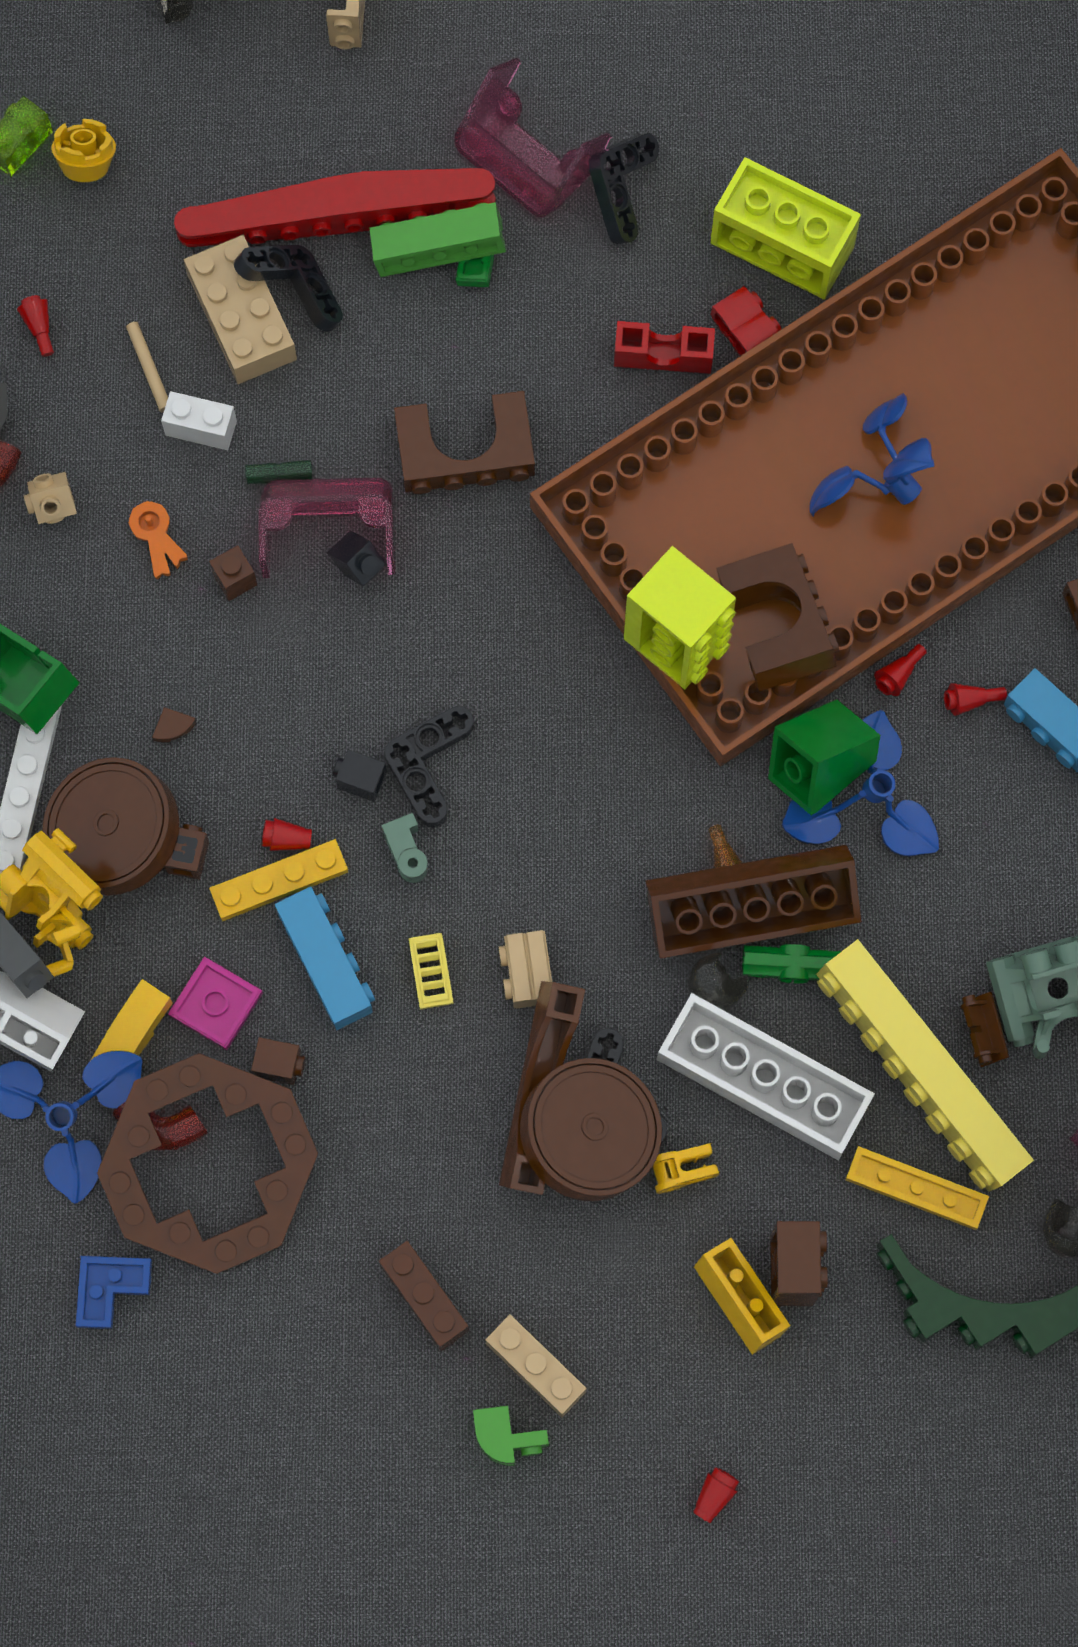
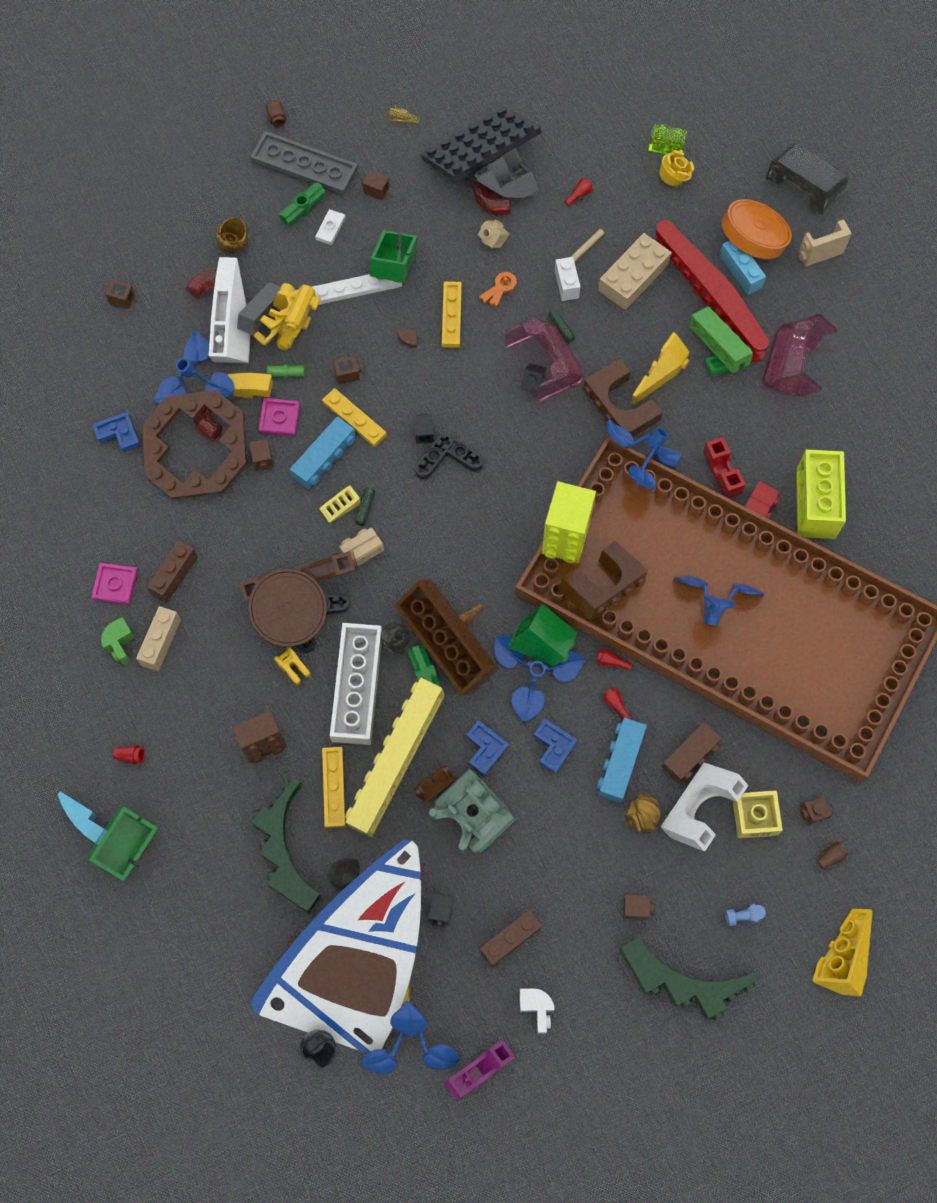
camera: 65 degrees right, 5 degrees down
(118, 820) = (341, 329): reddish brown brick -> none
(134, 955) = (286, 370): none -> bright green pin
(167, 636) = (451, 314): none -> yellow plate
(233, 573) = (496, 327): reddish brown brick -> none
(268, 84) = (756, 229): none -> orange brick
(285, 836) = (376, 408): red cone -> none
(317, 140) = (742, 268): none -> medium azure brick
(320, 306) = (668, 286): black beam -> none
(394, 1404) = (114, 583): none -> dark pink tile
(408, 859) = (396, 464): sand green leg -> none
(436, 339) = (670, 362): none -> yellow wedge
(457, 935) = (364, 509): none -> clear green piece
(588, 421) = (655, 441): none -> blue plant
(612, 179) = (801, 402): black beam -> none
(741, 1296) = (241, 711): yellow brick -> none
(795, 1613) = (81, 817): none -> medium azure slope
(860, 1555) = (121, 841): none -> green piece
(958, 917) = (490, 747): none -> blue plate
(1002, 813) = (559, 745): none -> blue plate

